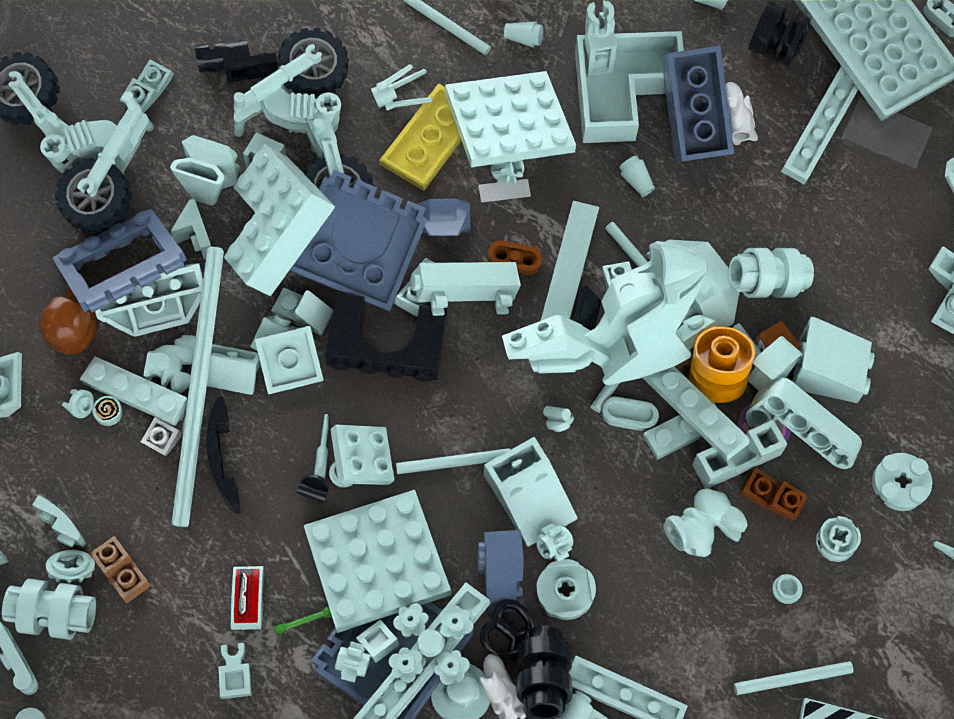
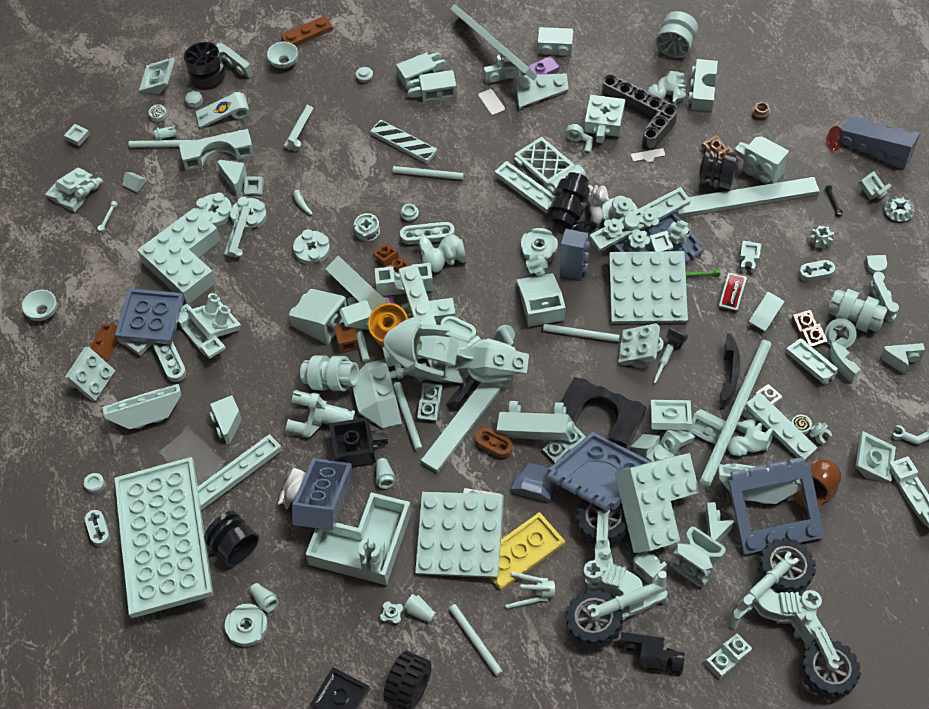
camera: 155 degrees left, 10 degrees down
(107, 512) = (812, 361): none -> light aqua hinge
(120, 674) = (817, 271): none -> light aqua beam
(187, 576) = (766, 311): none -> light aqua slope
(554, 28) = (391, 618): none -> light aqua plate
(692, 195) = (355, 441): none -> black hinge
(751, 548) = (433, 231): none -> light aqua plate
(758, 222) = (319, 413): none -> light aqua wheel
(873, 185) = (227, 416): none -> light aqua slope

